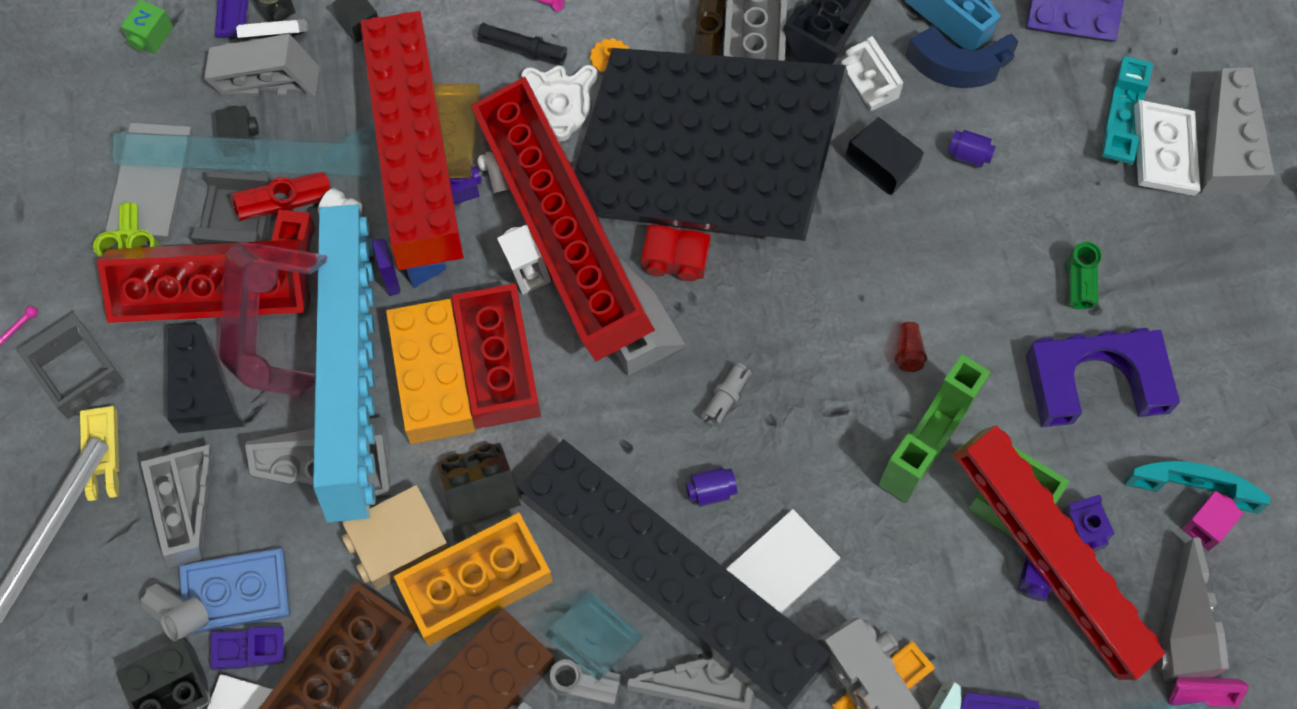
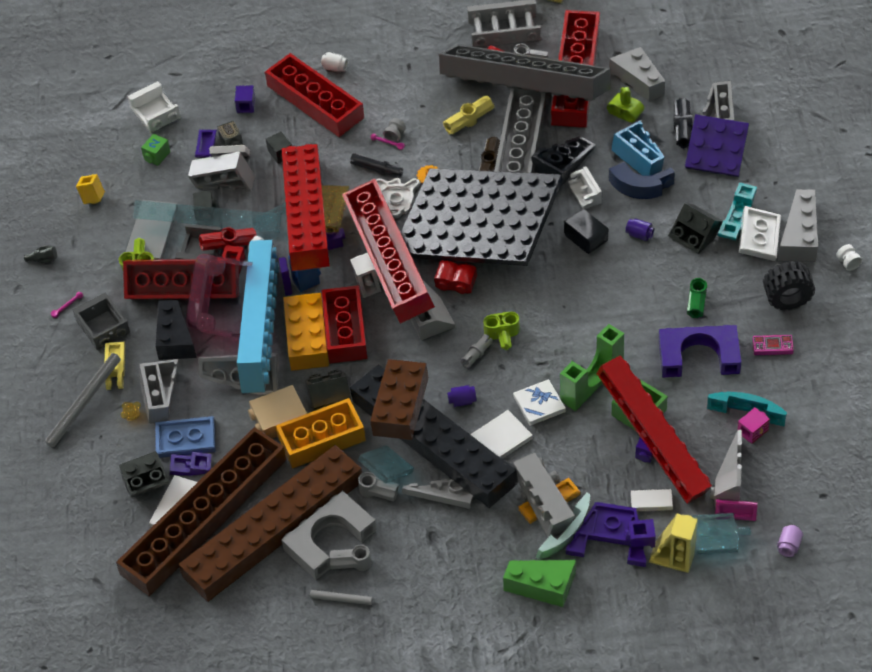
camera: 10 degrees right, 15 degrees down
(37, 108) = (90, 189): none -> yellow brick
(142, 547) = (132, 414): none -> clear yellow plate
(175, 614) = (152, 441): light grey piece -> none
(497, 179) = (354, 234): white arm -> none
(611, 522) = (399, 399): none -> reddish brown brick
(767, 350) = (502, 327): none -> lime beam
(844, 492) = (539, 402): none -> white tile
(910, 348) = (588, 333): clear red cone -> none
(1058, 677) = (652, 500): none -> white tile
(1061, 142) = (695, 227): none -> pearl dark grey slope
(1091, 509) = (681, 422): dark purple brick -> none
(1217, 357) = (773, 345): none -> tile
(1239, 251) = (788, 285): none -> black tyre

